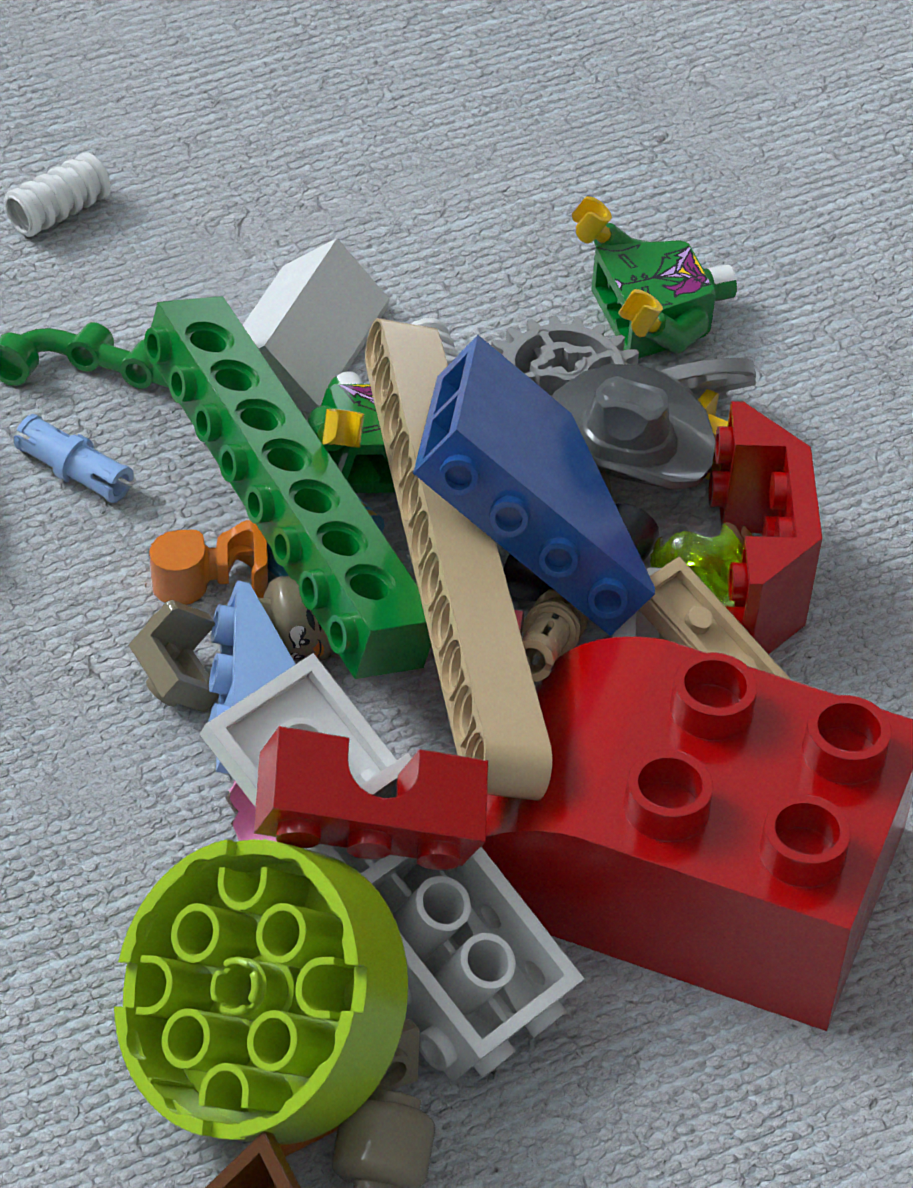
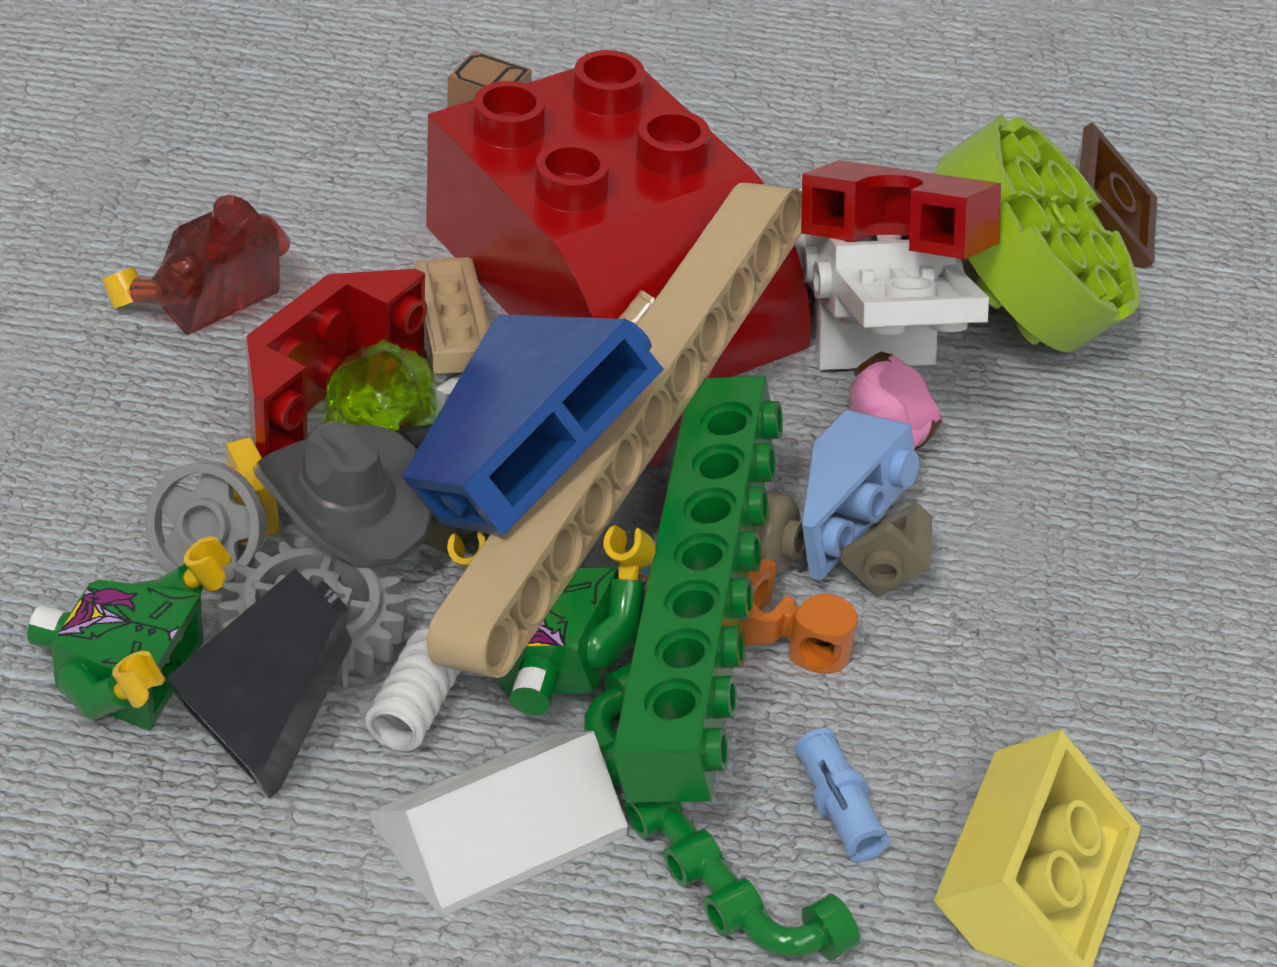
camera: 145 degrees left, 5 degrees down
(521, 281) = (267, 676): none -> black slope

